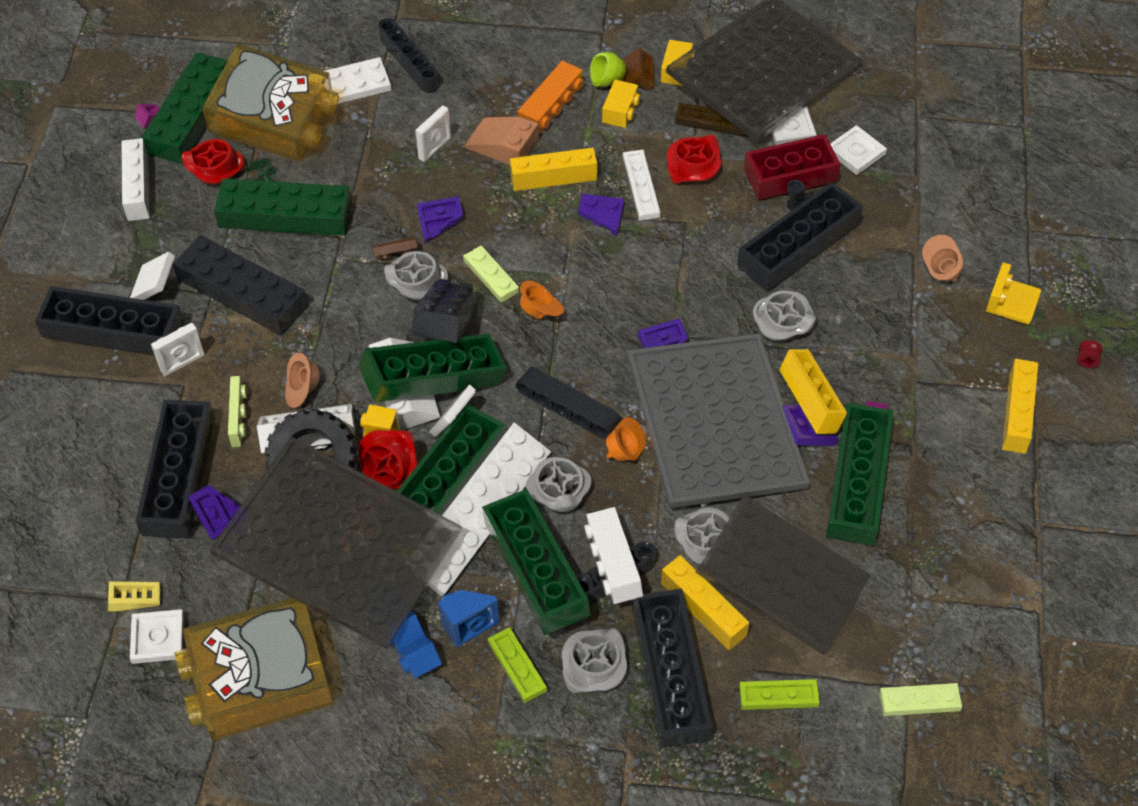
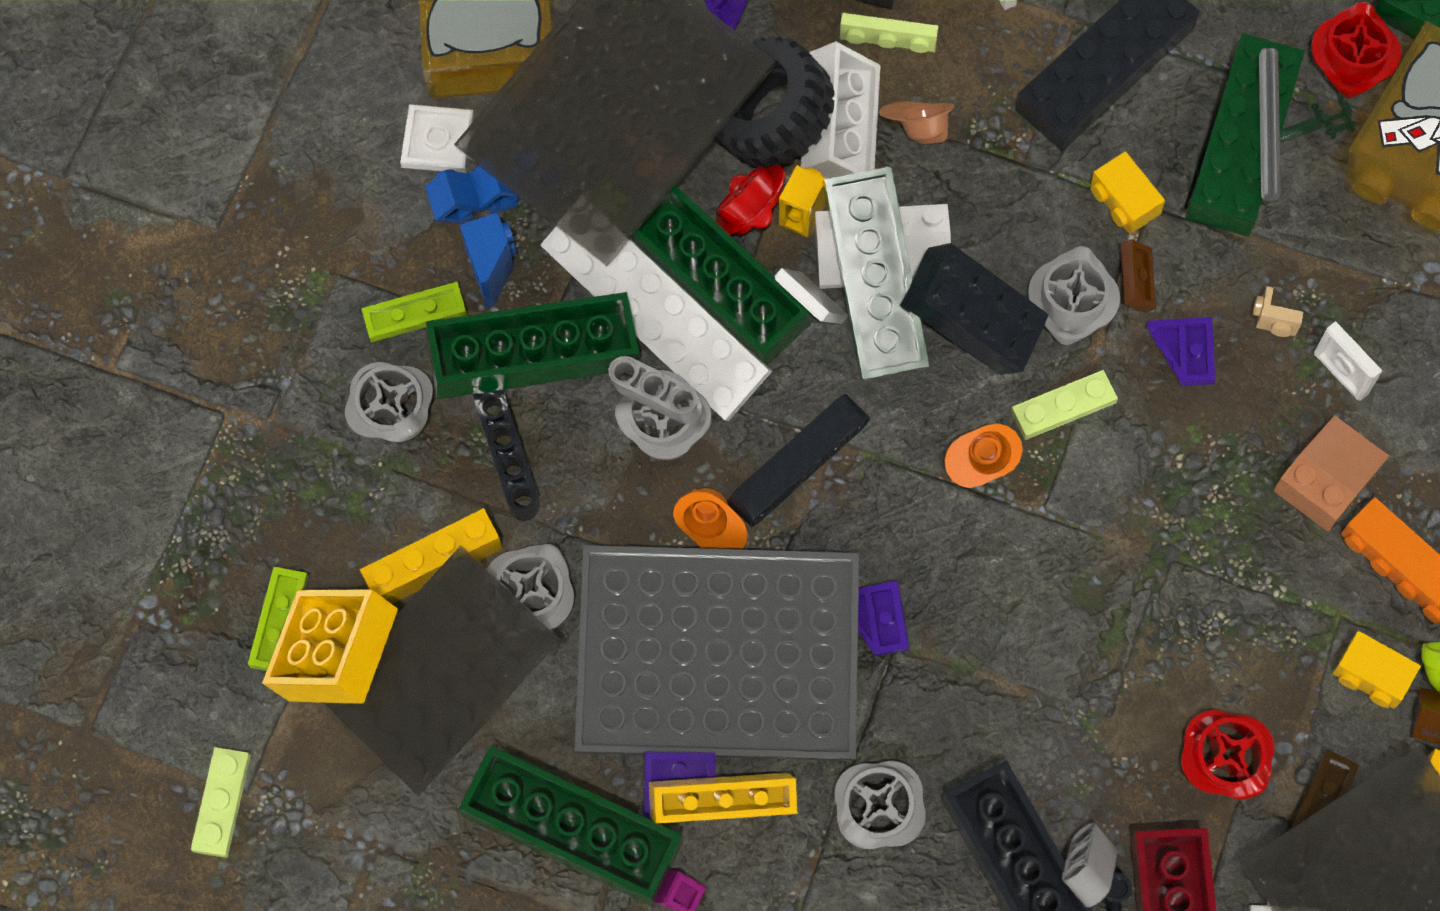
camera: 105 degrees right, 15 degrees up
(282, 182) = (1269, 124): none -> dark grey axle
(336, 261) = (1126, 193): none -> yellow brick
(368, 688) = (432, 136): none -> white tile
(405, 181) = (1276, 319): none -> tan bracket
(551, 467) = (647, 377): none -> light grey beam
(553, 169) = (1247, 532): yellow brick -> none
(602, 211) = (1153, 593): dark purple wing -> none
(614, 556) = (515, 446): white brick -> none
(641, 185) = (1199, 665): white tile -> none
(671, 669) = (347, 489): black brick -> none
(792, 195) = (1090, 865): none -> light grey beam
(793, 641) = (330, 646): none -> yellow slope

